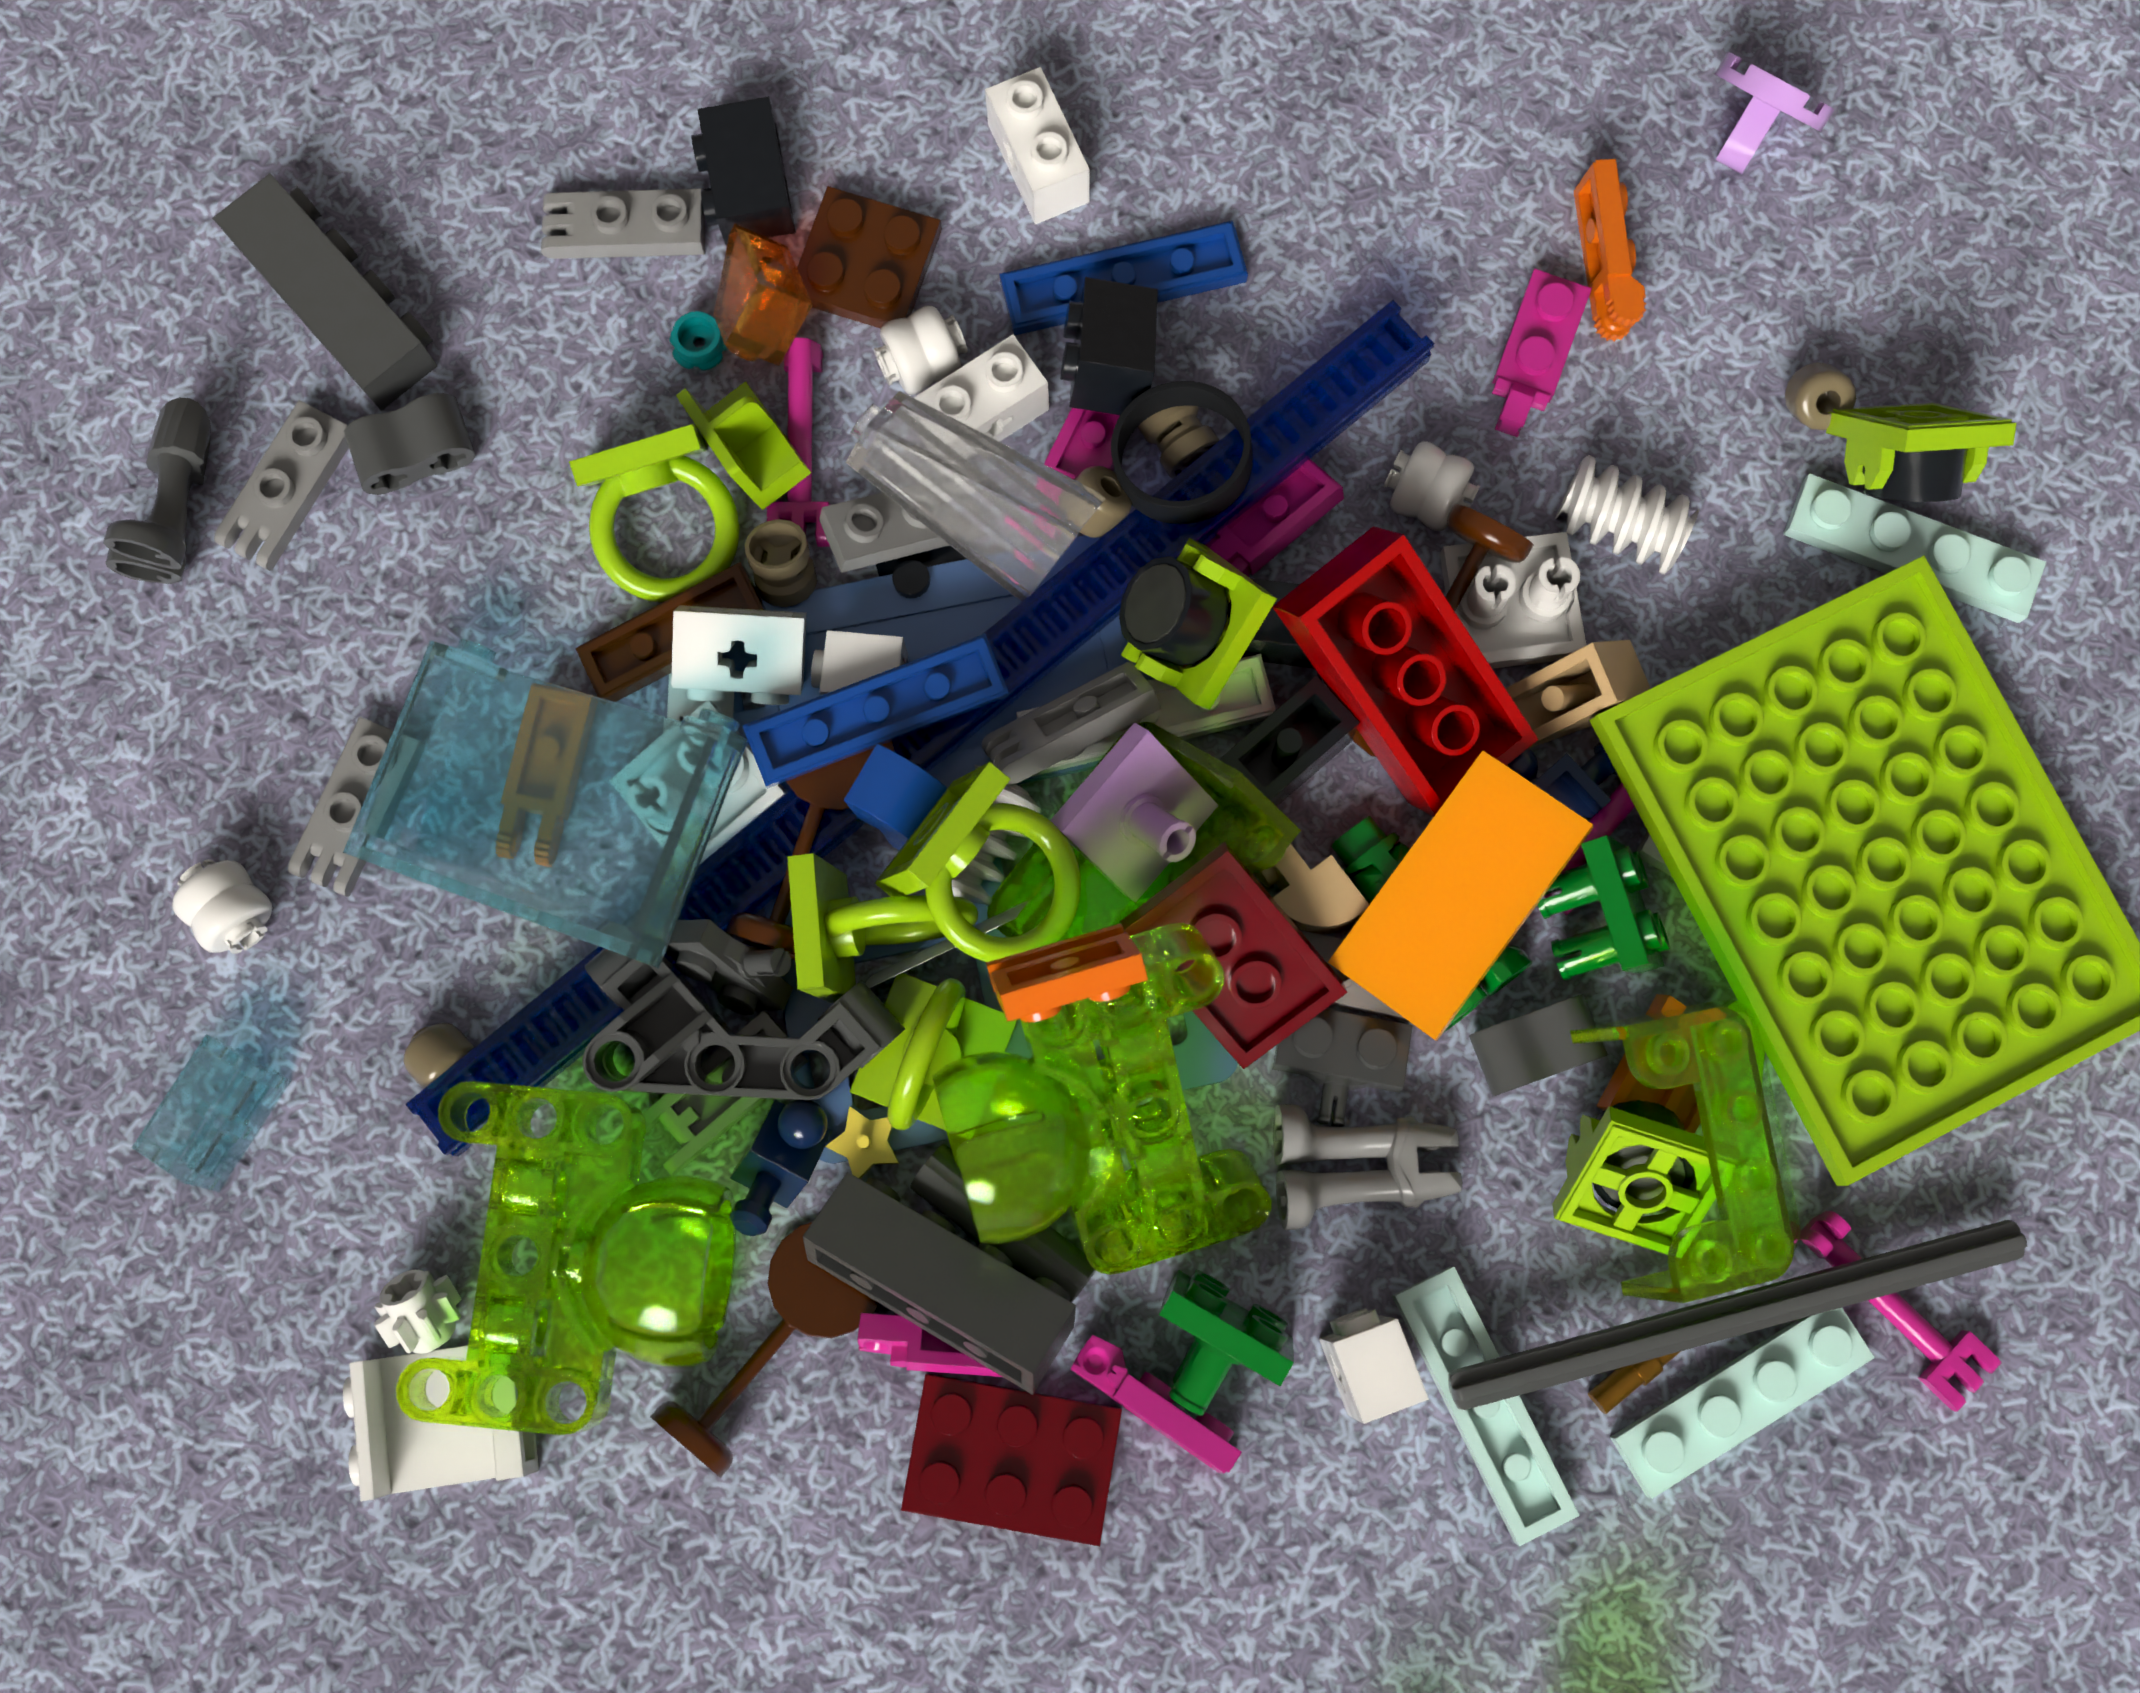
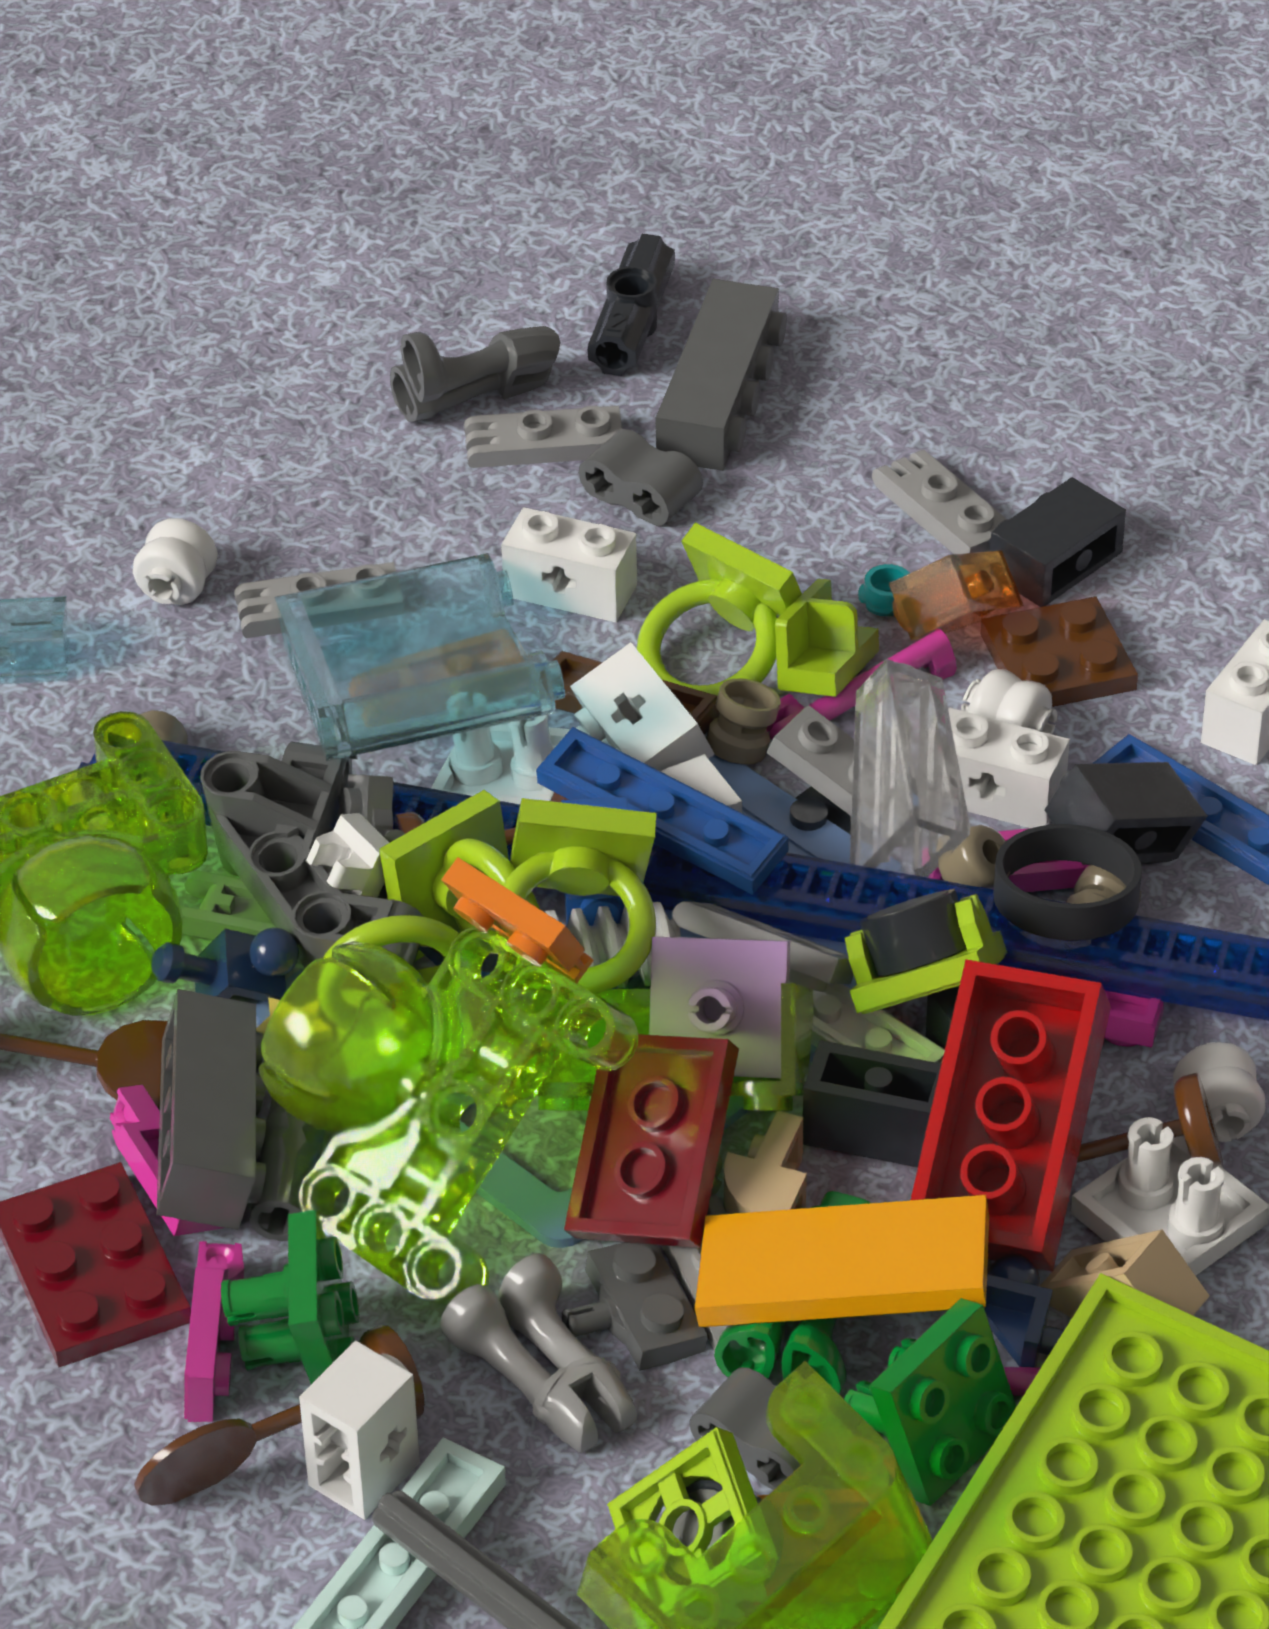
camera: 55 degrees right, 35 degrees down
(159, 281) = (631, 304): none -> black piece
(483, 576) = (570, 564): none -> white brick
(767, 1004) = (351, 856): none -> white tile
(1314, 1486) = (219, 1448): none -> reddish brown piece

